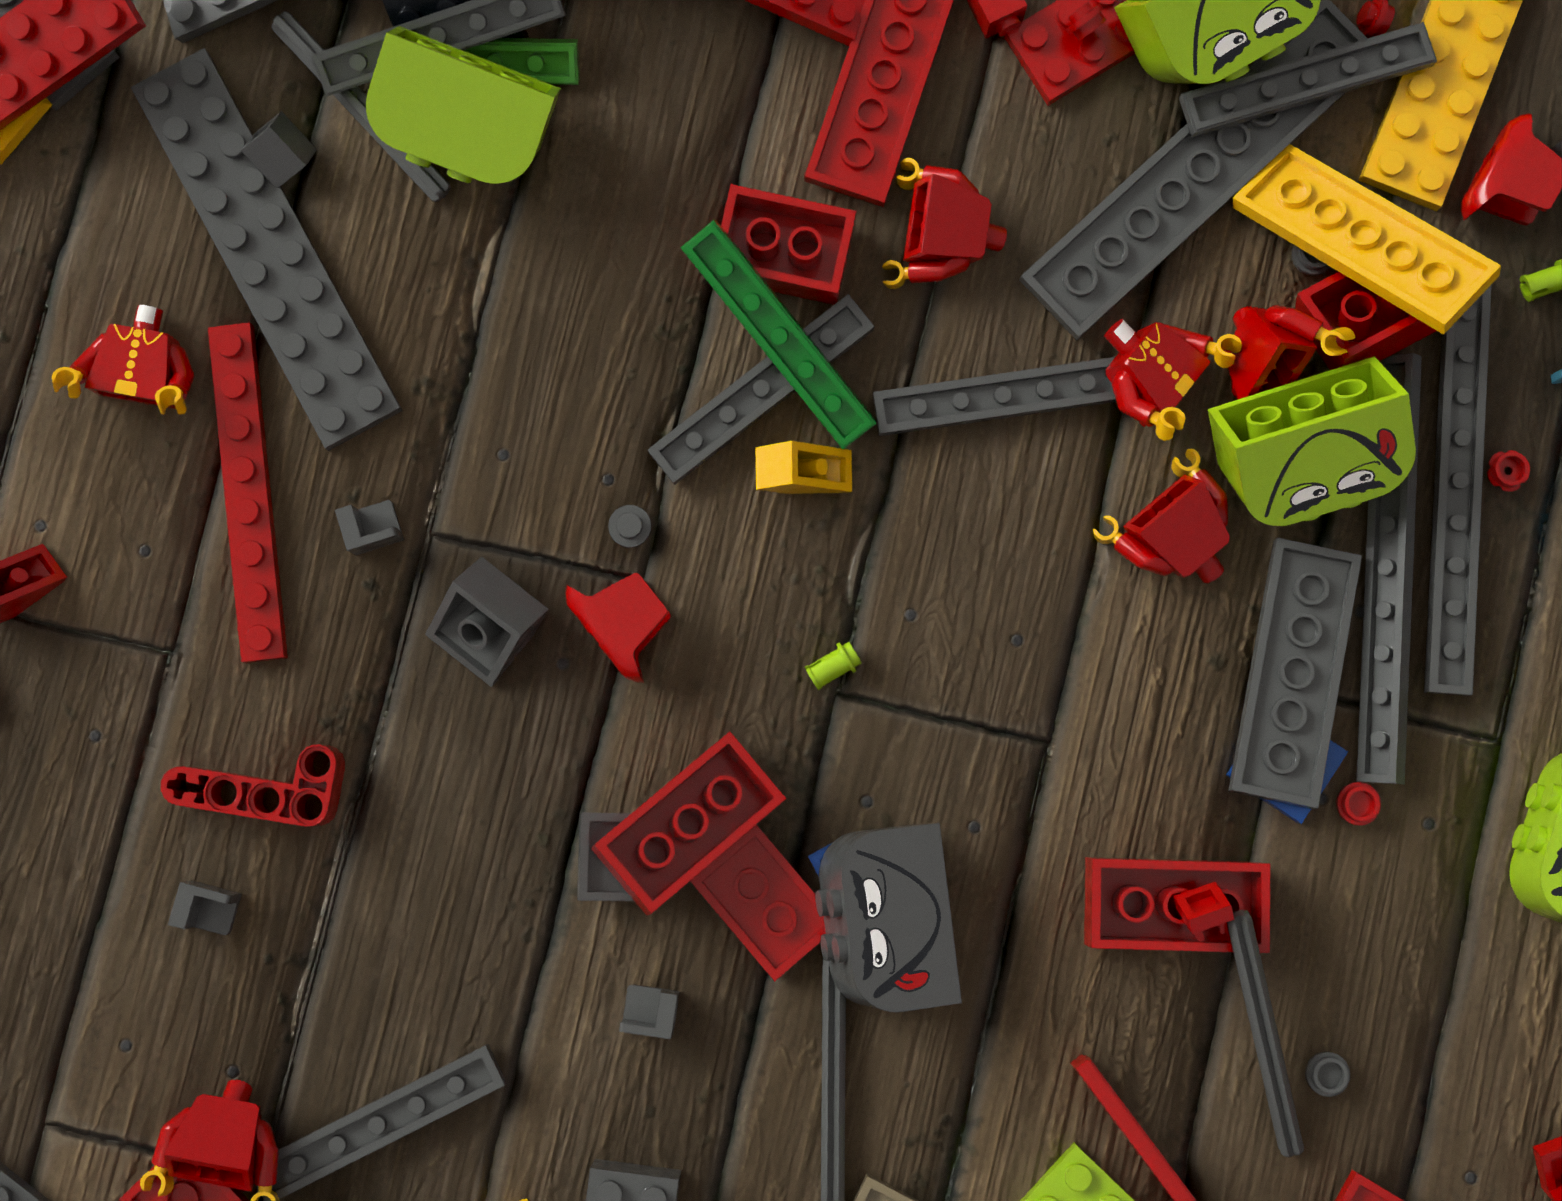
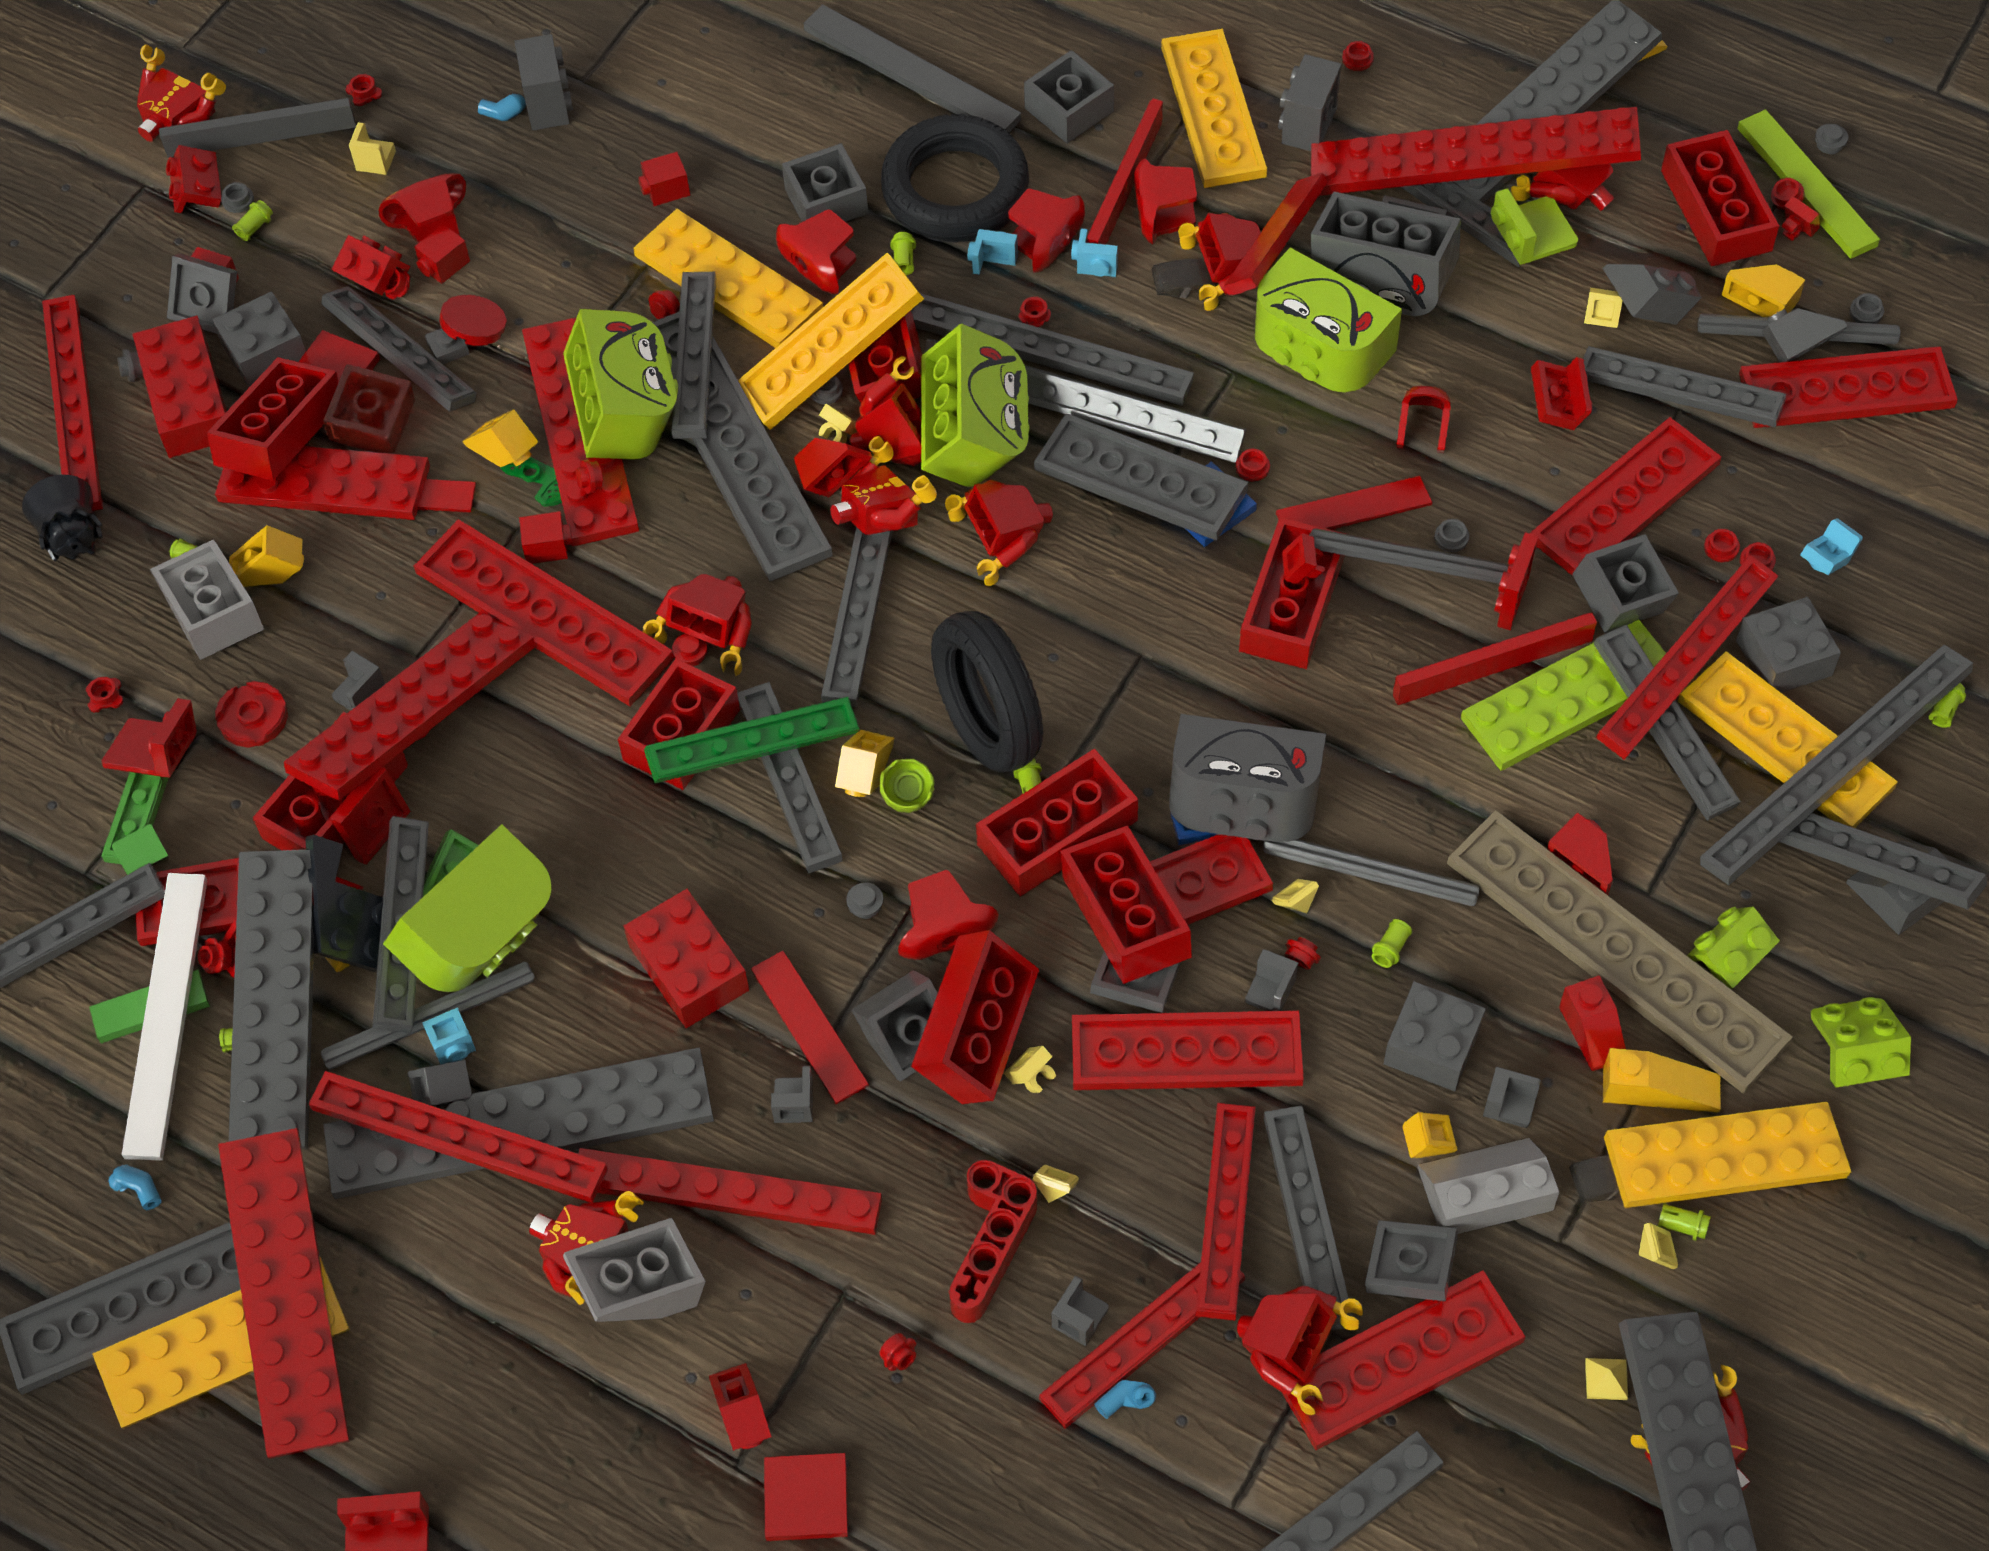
camera: 75 degrees left, 25 degrees down
(95, 431) = (637, 1274): none -> light grey slope
(110, 732) = (898, 1352): none -> red plate
(133, 983) = (1126, 1394): none -> dark azure arm
(201, 981) = (1125, 1350): none -> red tile
(211, 193) = (459, 1137): none -> red plate
(336, 138) = (449, 1037): none -> medium azure bracket
(348, 838) = (1054, 1182): none -> light yellow slope
(360, 1033) = (1225, 1212): none -> red tile
(460, 515) = (809, 1027): none -> red piece
(471, 770) = (1028, 1066): none -> light yellow tile
(496, 355) = (686, 958): none -> red brick
(497, 697) = (975, 1018): none -> red brick
(542, 939) = (1187, 1050): none -> red plate
(698, 1036) = (1303, 952): none -> red plate
(740, 1134) = (1387, 950): none -> lime pin
(772, 1009) = (1297, 895): none -> light yellow slope
(779, 713) = (1056, 814): none -> red brick
(780, 527) = (906, 785): none -> lime hair
(894, 220) = (689, 649): none -> red plate
(897, 587) = (1015, 730): none -> black tyre
(1193, 294) = (828, 464): none -> red slope
(1267, 285) = (836, 421): none -> light yellow tile
(1283, 1176) = (1515, 580): none -> red plate
(1335, 944) = (1361, 504): none -> red piece
(1505, 987) = (1425, 396): none -> red piece

